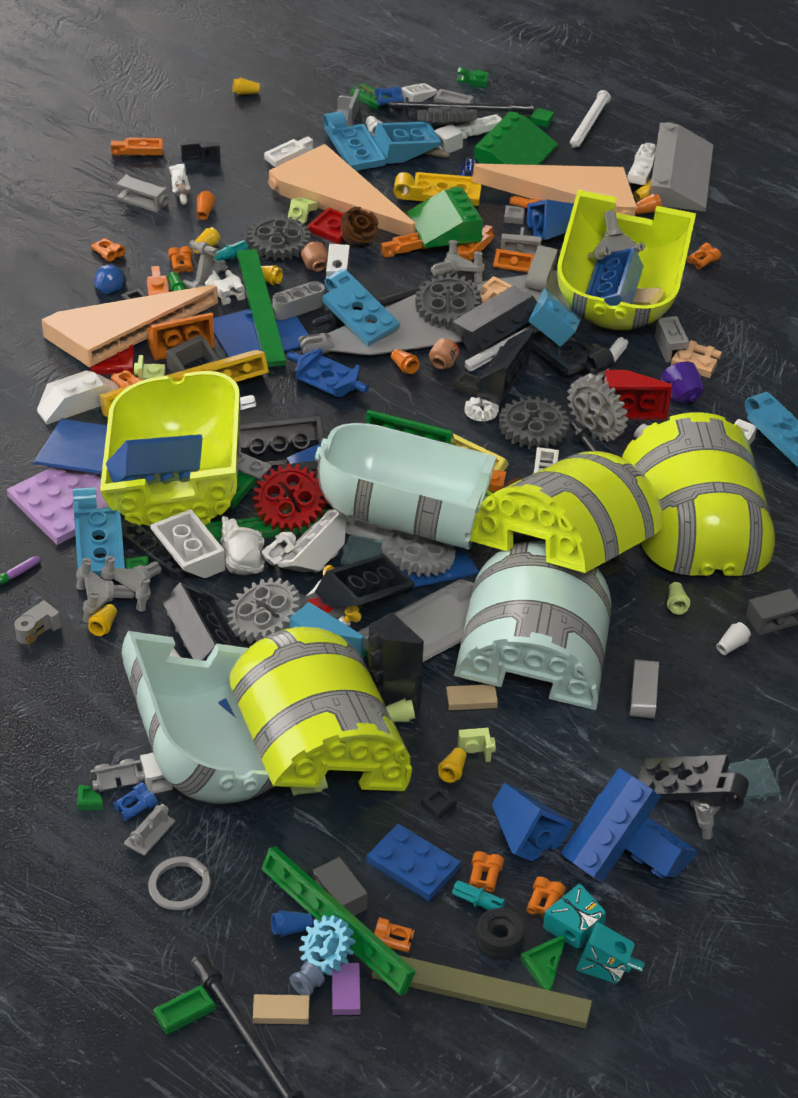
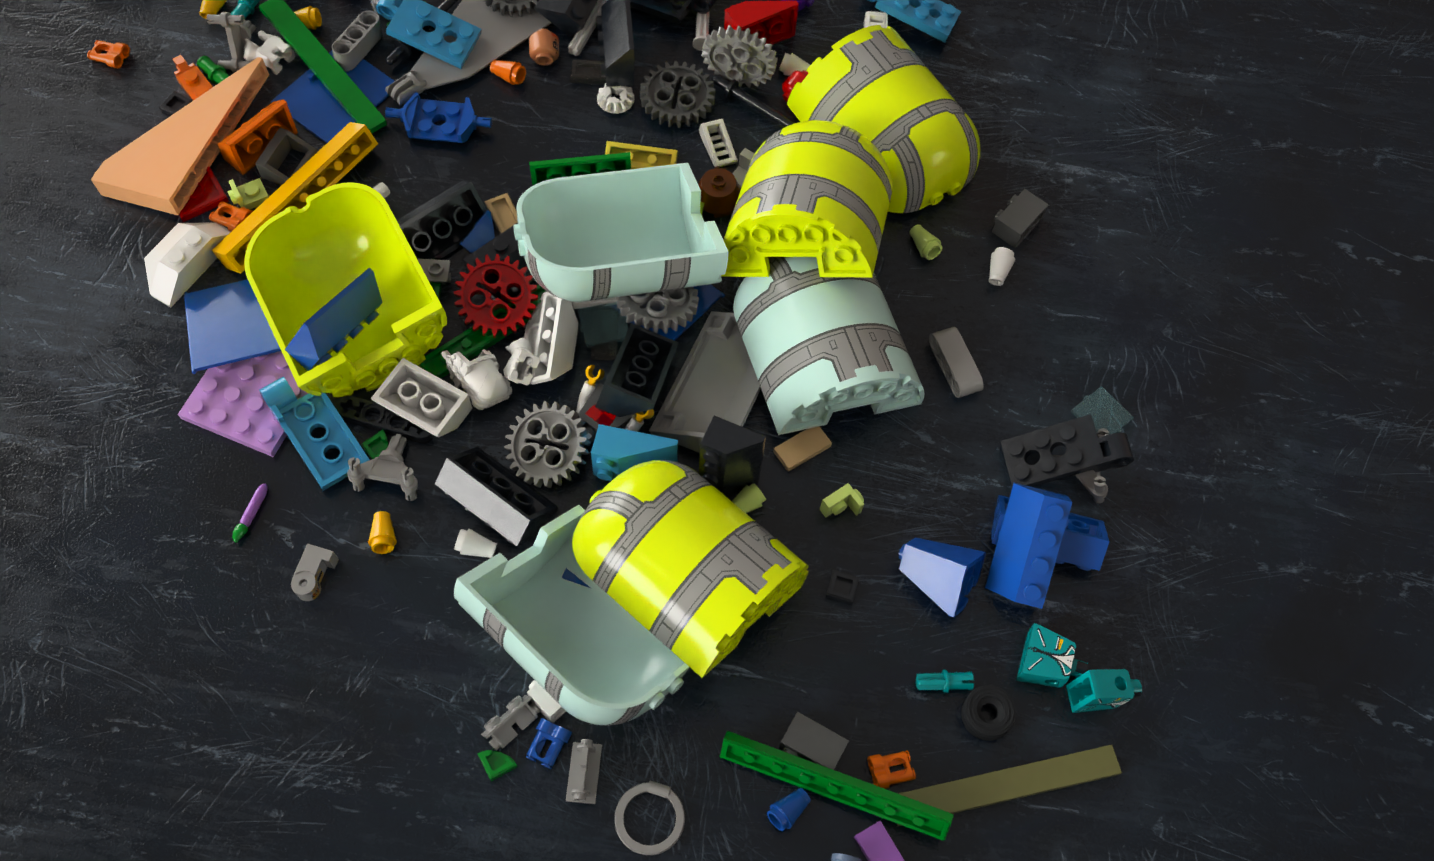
camera: 30 degrees left, 20 degrees up
(97, 589) = (357, 500): light grey axle -> none
(109, 279) = (134, 93): blue hair -> none
(181, 254) = (195, 29): orange piece -> none
(327, 944) = (851, 836): medium azure gear -> none
(413, 862) = (859, 670): blue plate -> none
(452, 766) = (833, 539): yellow cone -> none
(485, 863) = (929, 636): orange piece -> none
(544, 888) = (1002, 637): orange piece -> none
(544, 961) = (1042, 722): green tile -> none

